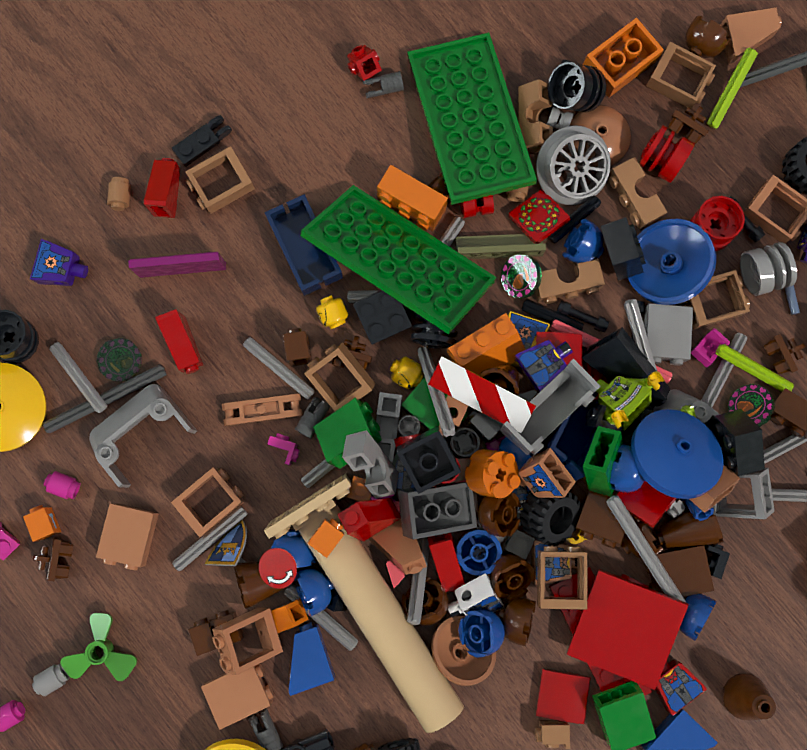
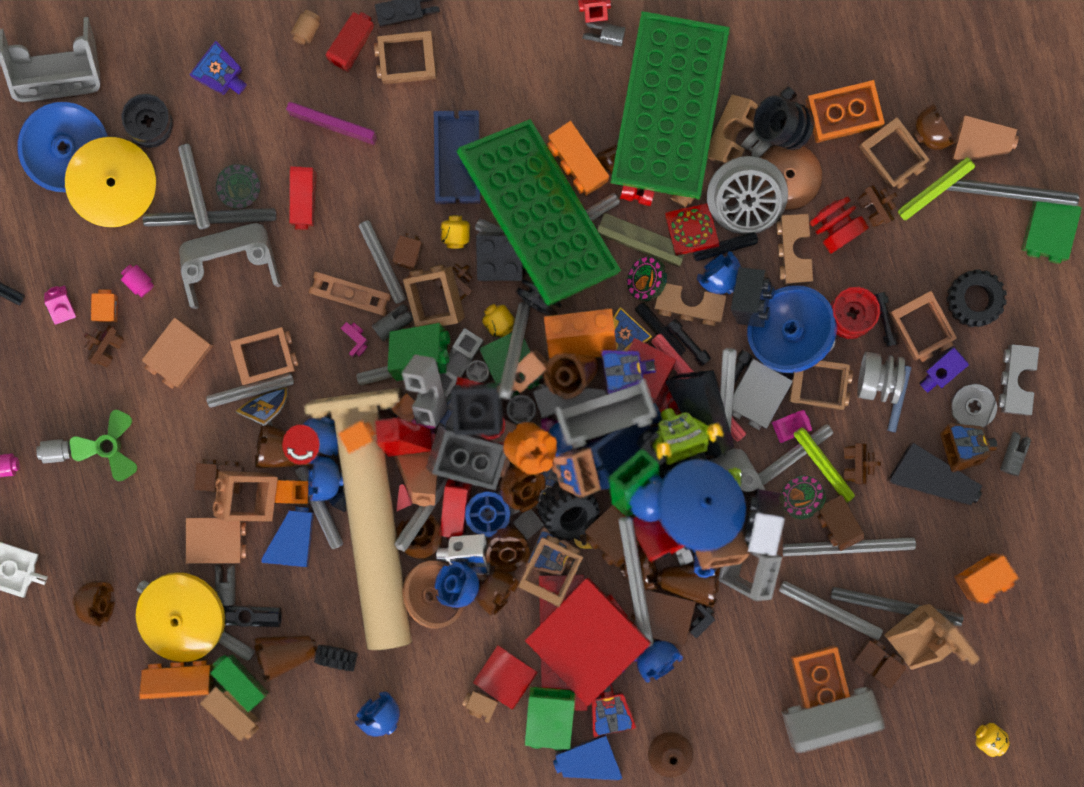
camera: 30 degrees right, 5 degrees up
(481, 394) = (551, 373): sticker -> none

